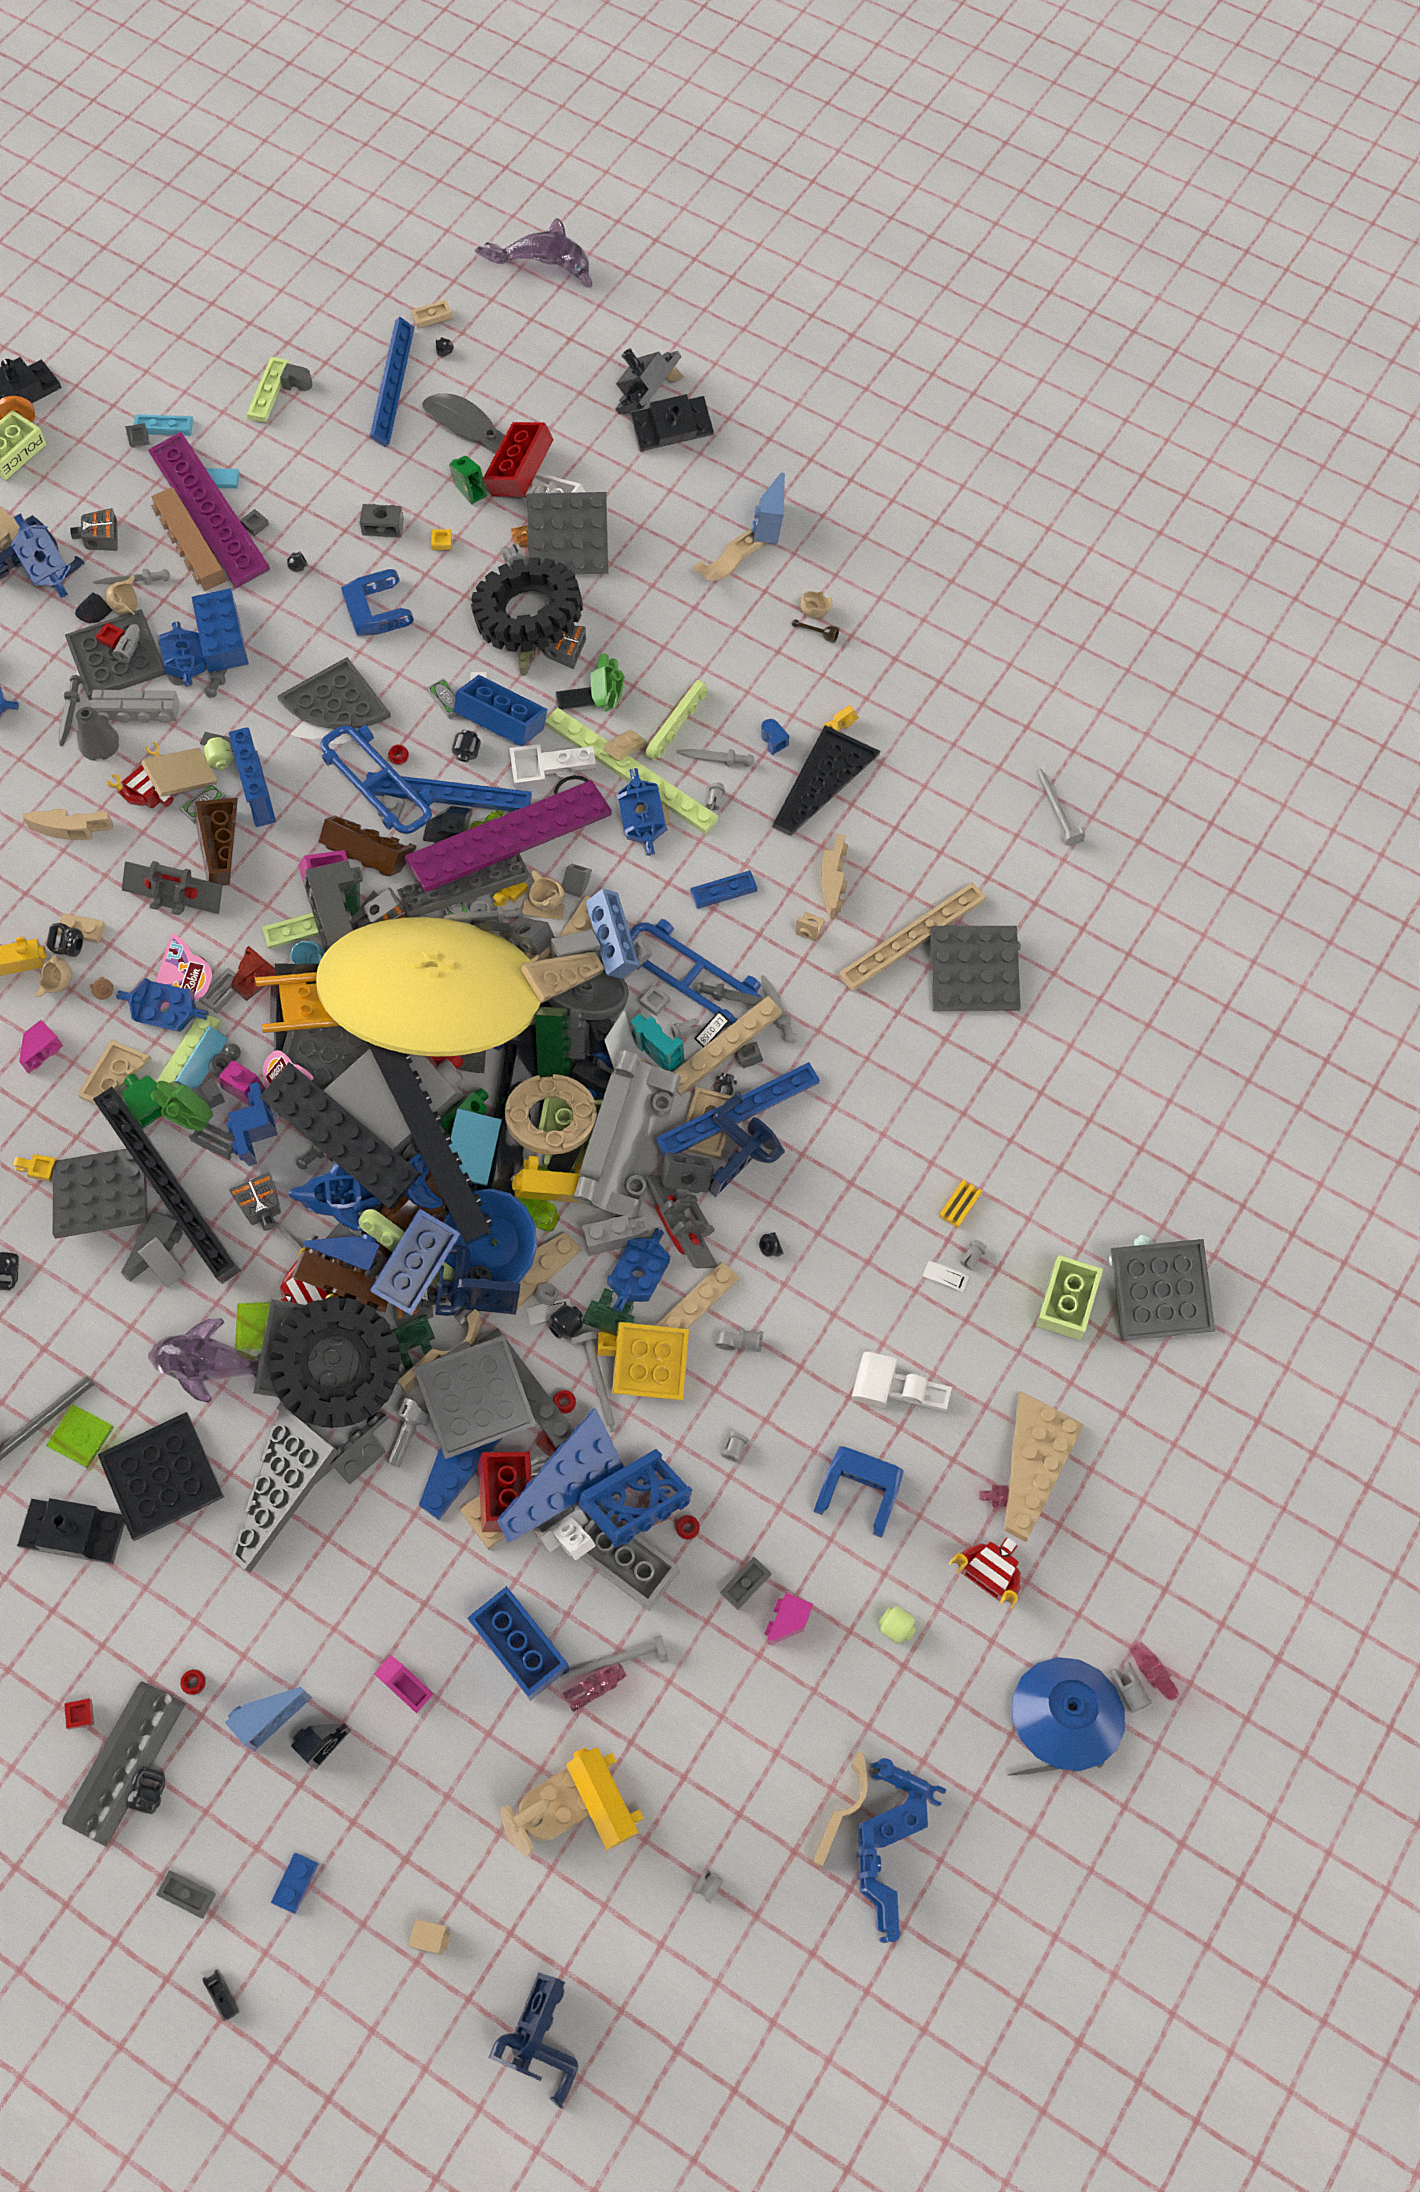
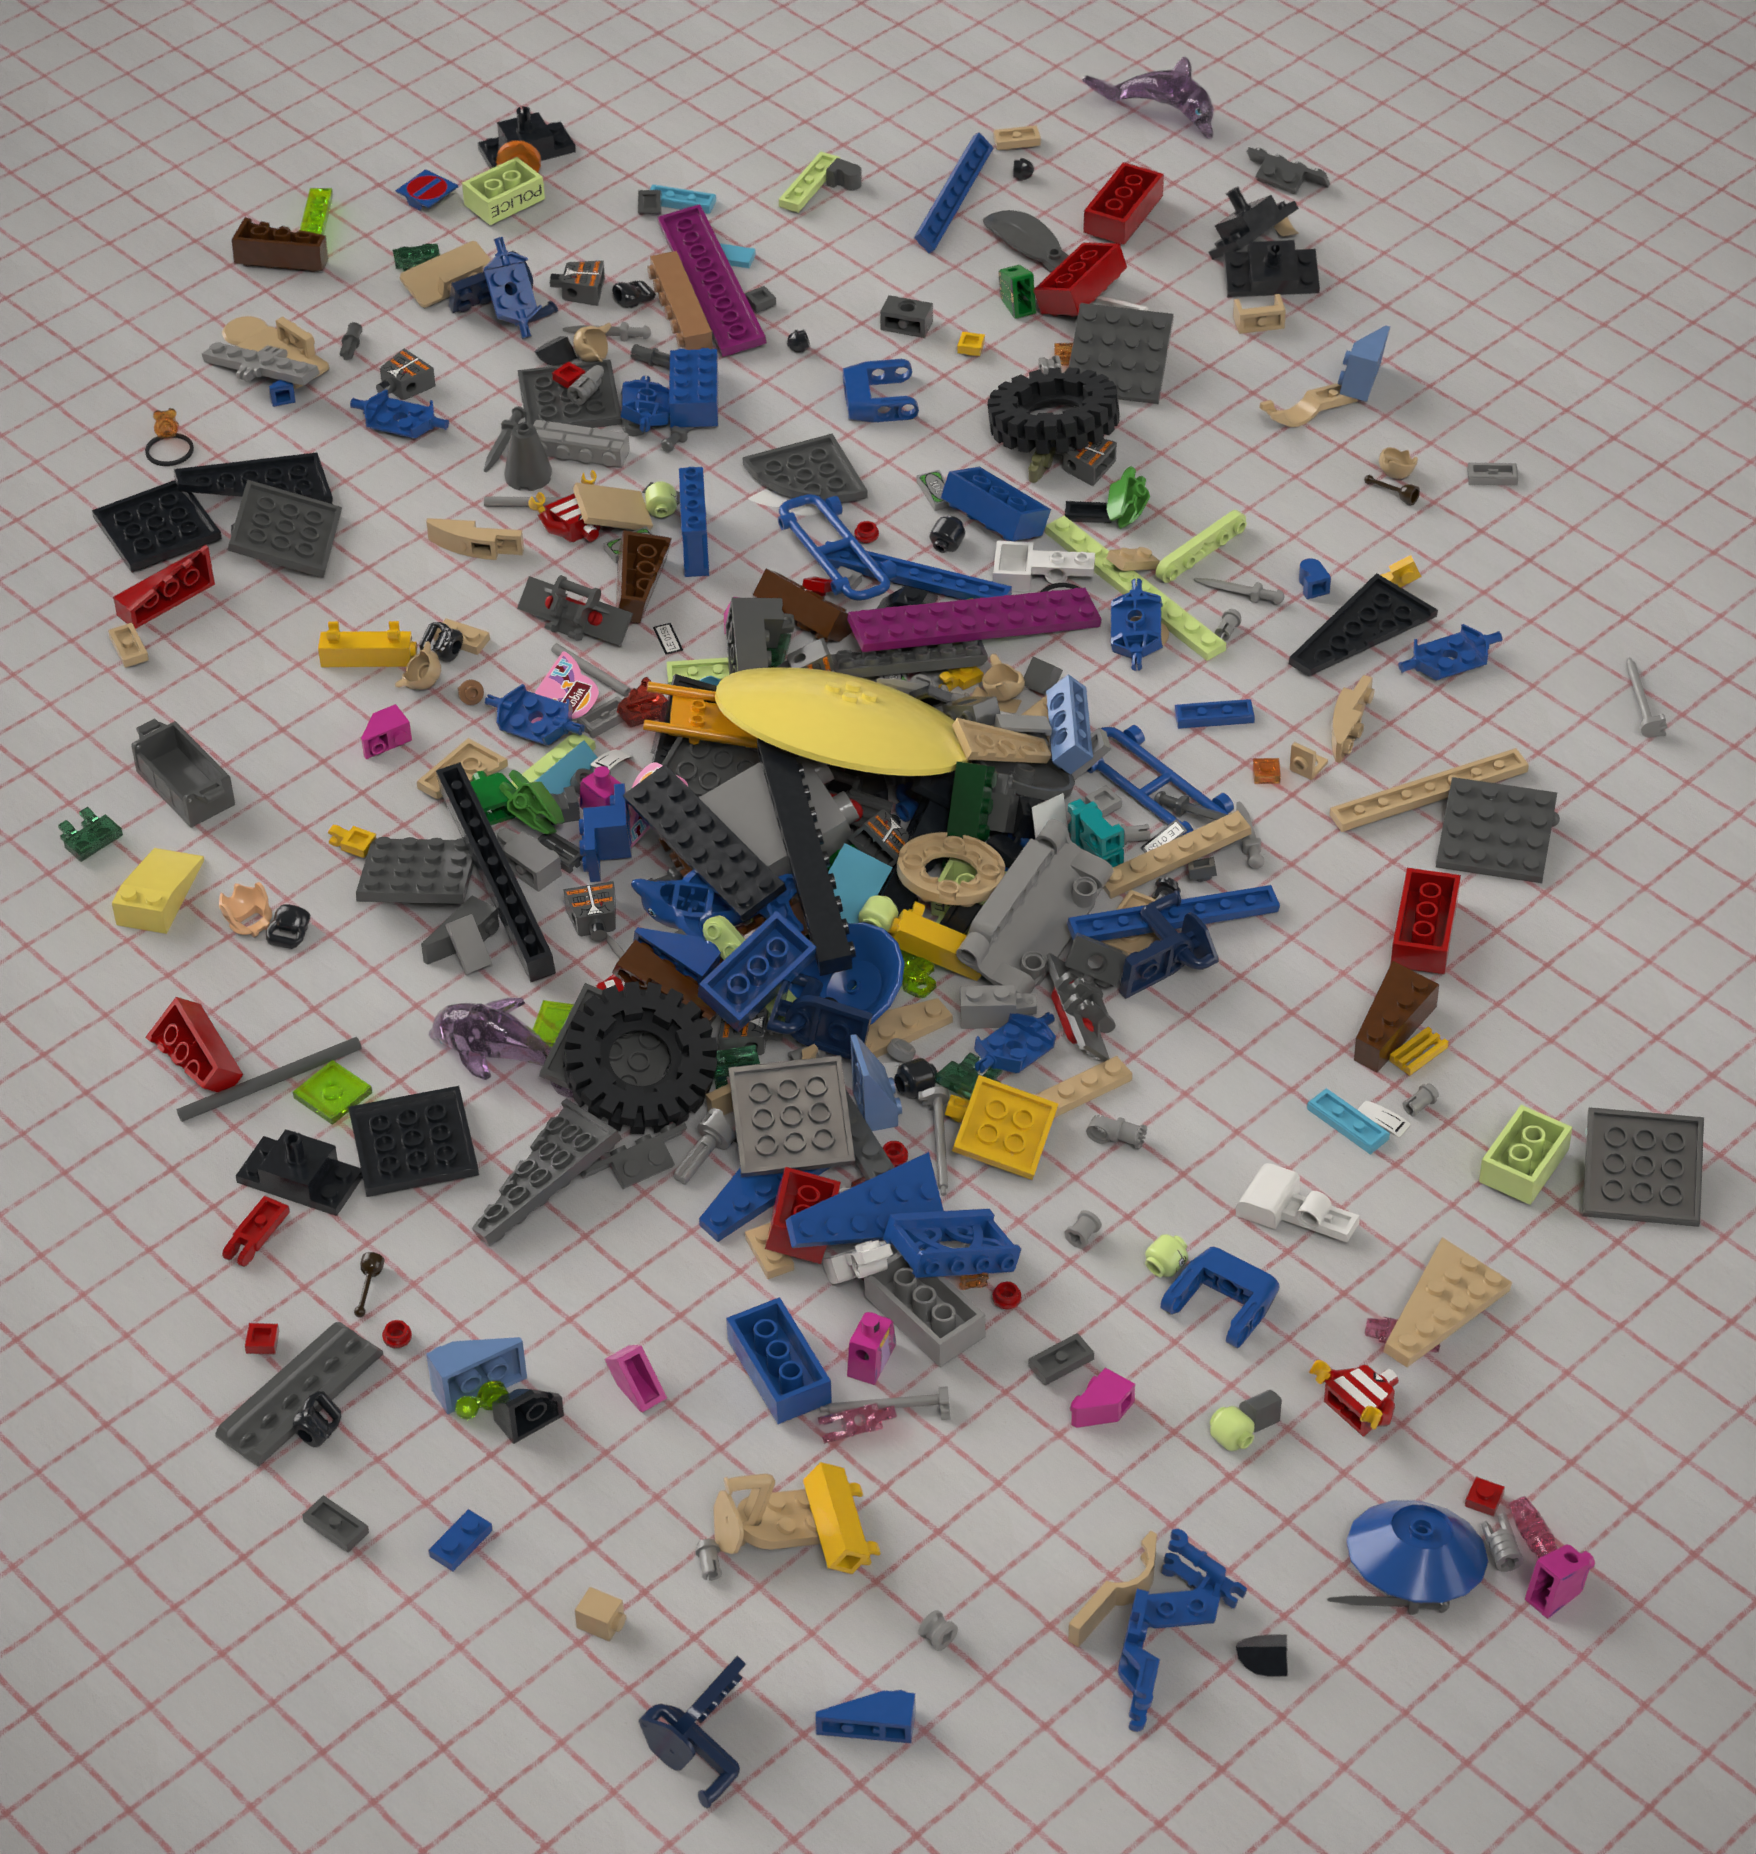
camera: 15 degrees right, 20 degrees down
(47, 1599) = (255, 1230): none -> red hinge
(102, 773) = (515, 501): none -> light grey piece
(143, 537) = (629, 296): none -> black piece
(155, 1616) = (371, 1266): none -> dark brown hinge
(175, 599) = (651, 356): none -> dark grey axle
(191, 1157) = (530, 859): none -> light grey hinge
(199, 942) = (594, 671): none -> light grey piece
(223, 1999) = (349, 1626): black bar -> none
(237, 1037) = (610, 759): none -> white sticker
(256, 895) = (668, 638): none -> sticker
(287, 1729) = (468, 1406): none -> clear neon green plate
(370, 819) = (818, 585): none -> red plate
(486, 1091) = (881, 837): none -> dark grey torso
(501, 1174) = (878, 912): none -> yellowish green head
(505, 1856) = (708, 1552): none -> light grey pin
(535, 371) = (1123, 203): none -> red brick
(535, 1346) = (873, 1088): none -> medium blue slope
(590, 1613) = (876, 1338): none -> dark pink torso
(657, 316) = (1283, 173): none -> dark grey bracket
(671, 471) = (1259, 318): none -> tan panel
(681, 1985) = (872, 1717): none -> blue slope
(770, 1245) = (1178, 1050): black plate -> none
(778, 940) = (1266, 771): none -> clear orange plate
(807, 1460) = (1166, 1255): none -> yellowish green head
(893, 601) = (1492, 473): none -> light grey tile
(910, 782) = (1467, 648): none -> blue plate
(915, 1598) = (1263, 1409): none -> dark grey brick
(920, 1286) = (1348, 1121): none -> medium azure tile
(936, 1169) = (1395, 1014): none -> reddish brown wedge
(940, 1075) = (1425, 920): none -> red brick
(971, 1844) = (1264, 1654): none -> black brick
(1107, 1642) = (1484, 1496): none -> red plate
(1186, 1718) = (1558, 1579): none -> dark pink torso

